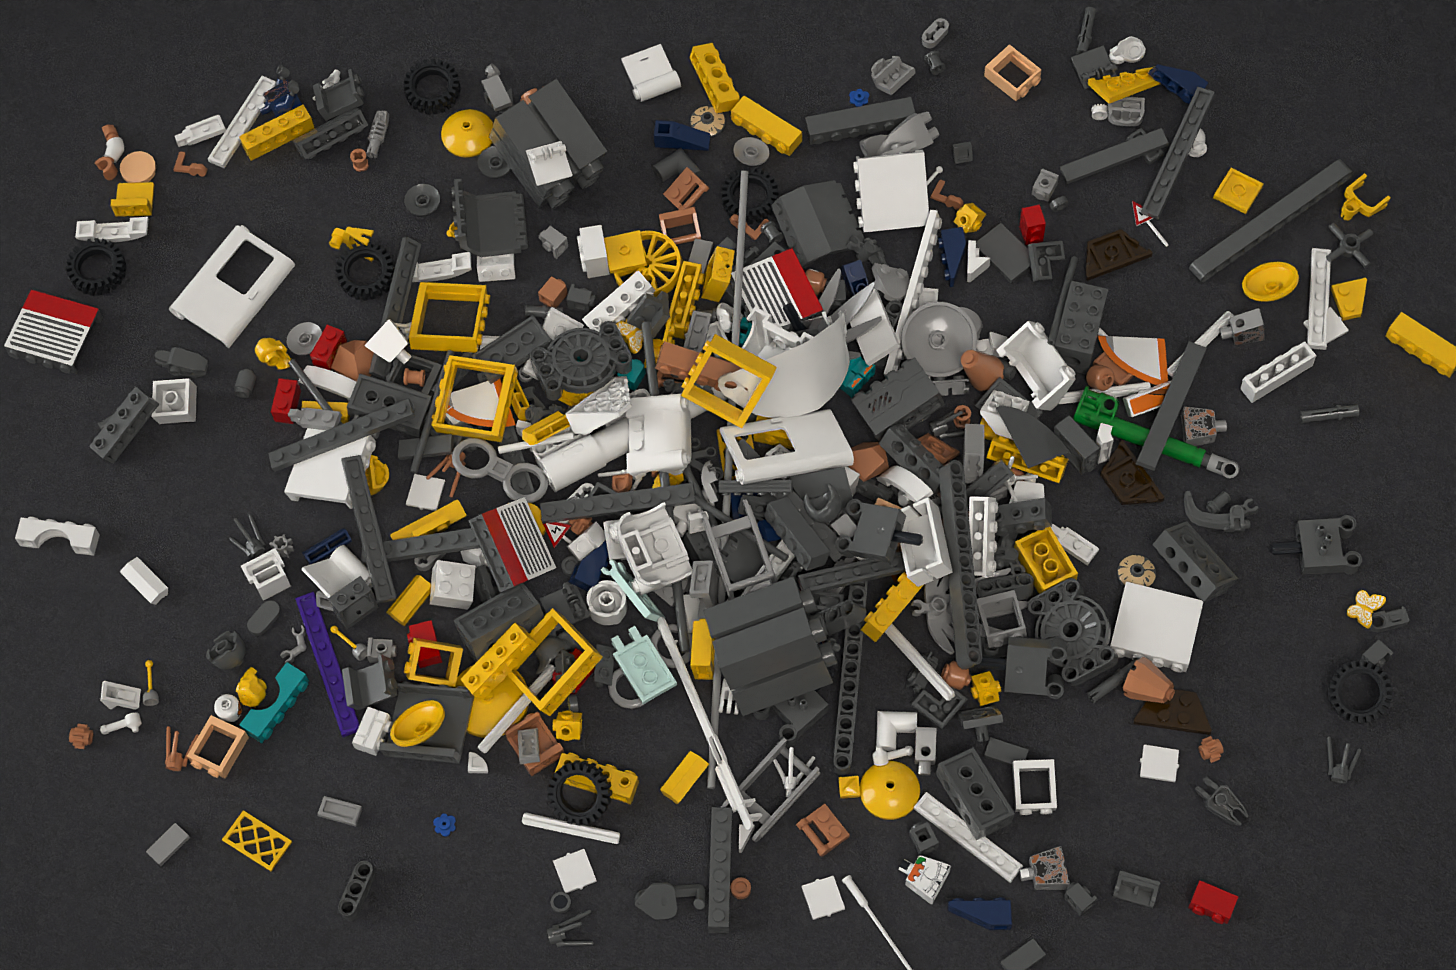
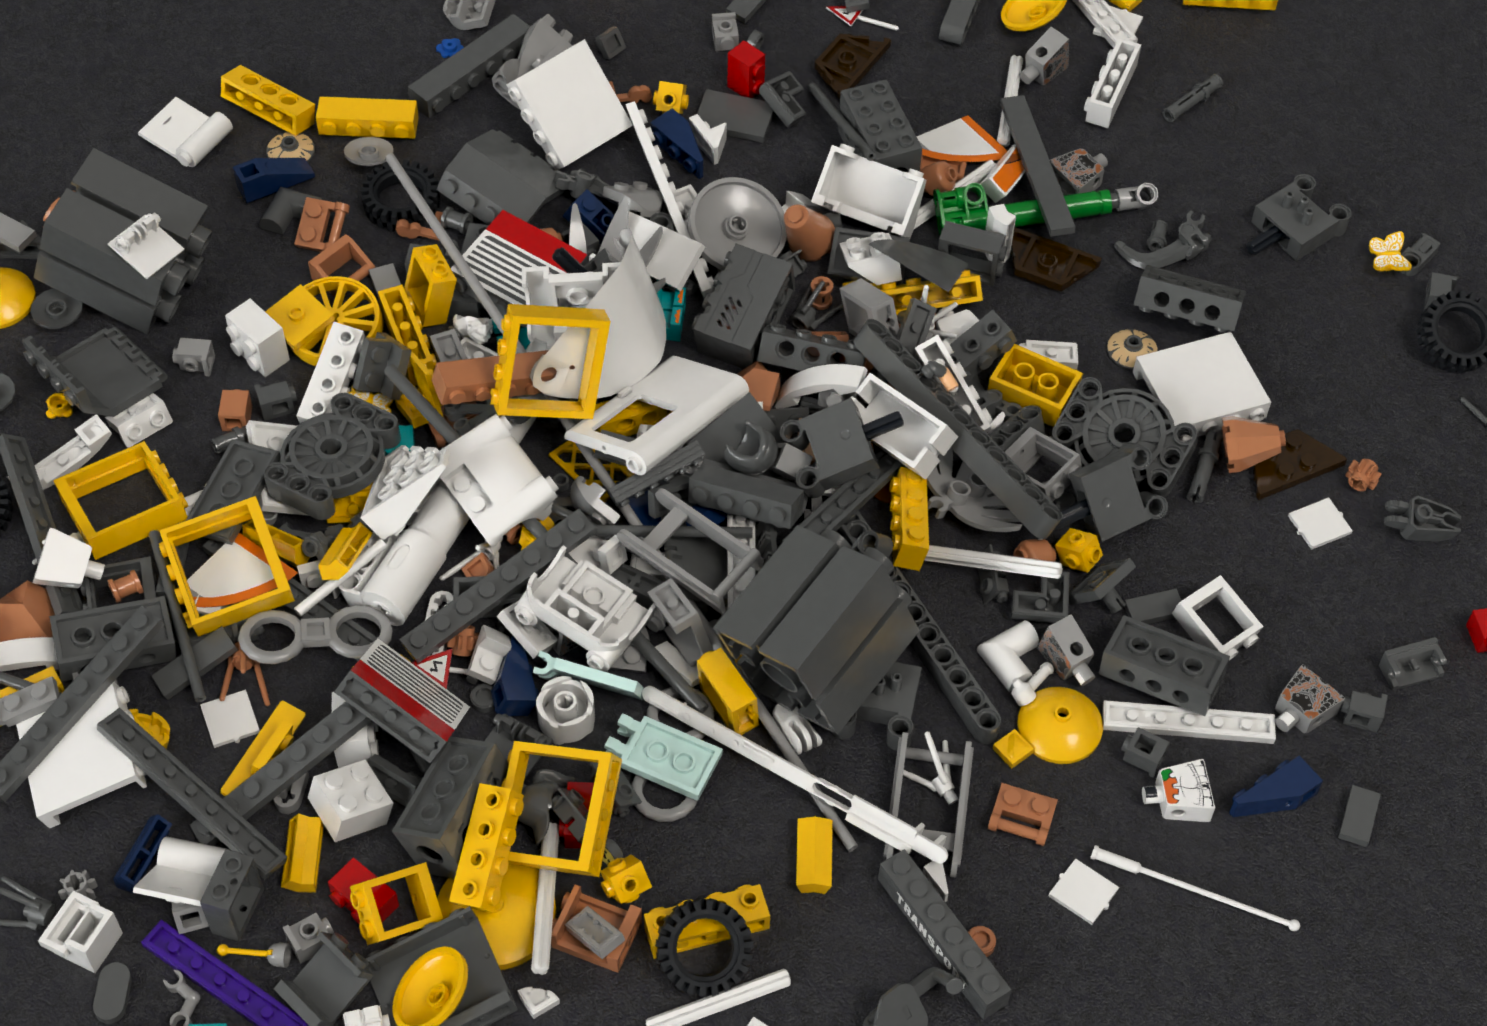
camera: 40 degrees left, 10 degrees down
(973, 522) = (942, 372): none -> arm

